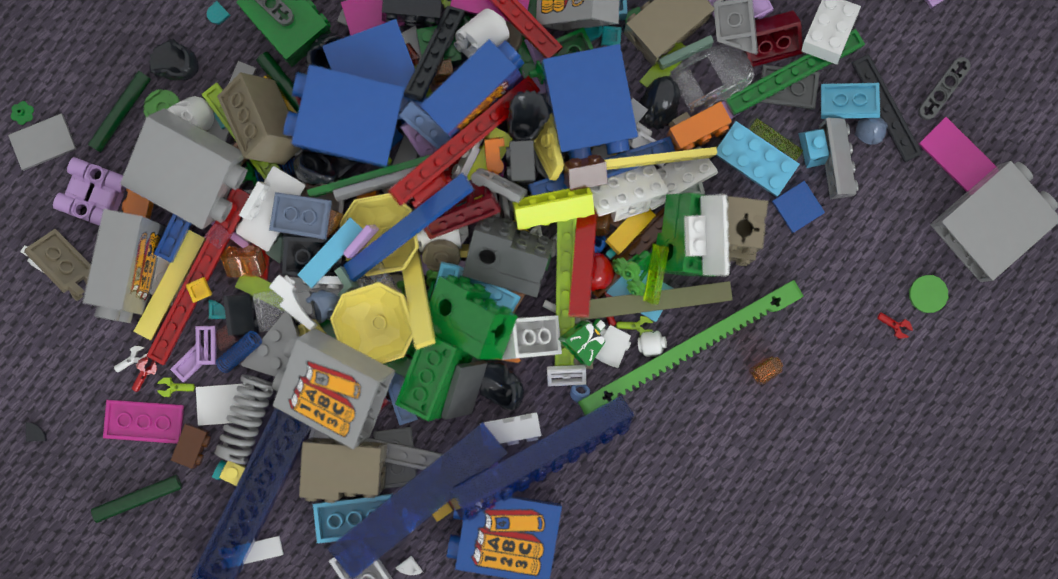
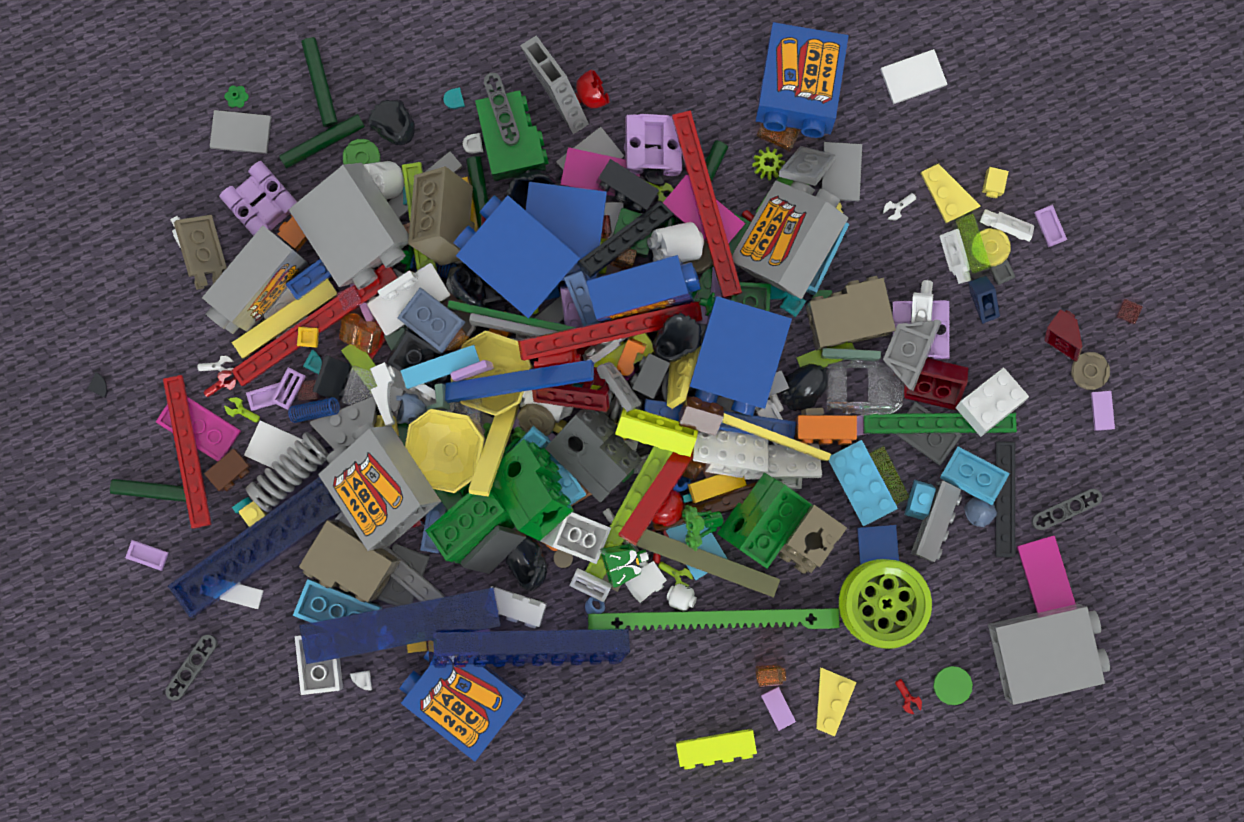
camera: 30 degrees right, 0 degrees up
(89, 61) = (319, 82): none -> dark green piece
(145, 449) = (187, 452): none -> red tile
(158, 560) = (147, 555): none -> lavender tile
(254, 44) = (473, 144): none -> white tile
(529, 365) = (563, 559): none -> dark tan tile
(655, 274) = (716, 538): clear neon green tile -> none
(708, 235) = (777, 530): white bracket -> none
(752, 459) = (715, 748): none -> neon yellow brick
(788, 395) = (778, 708): none -> lavender tile
(832, 363) = (832, 700): none -> light yellow wing
(863, 241) = (903, 578): none -> lime wheel

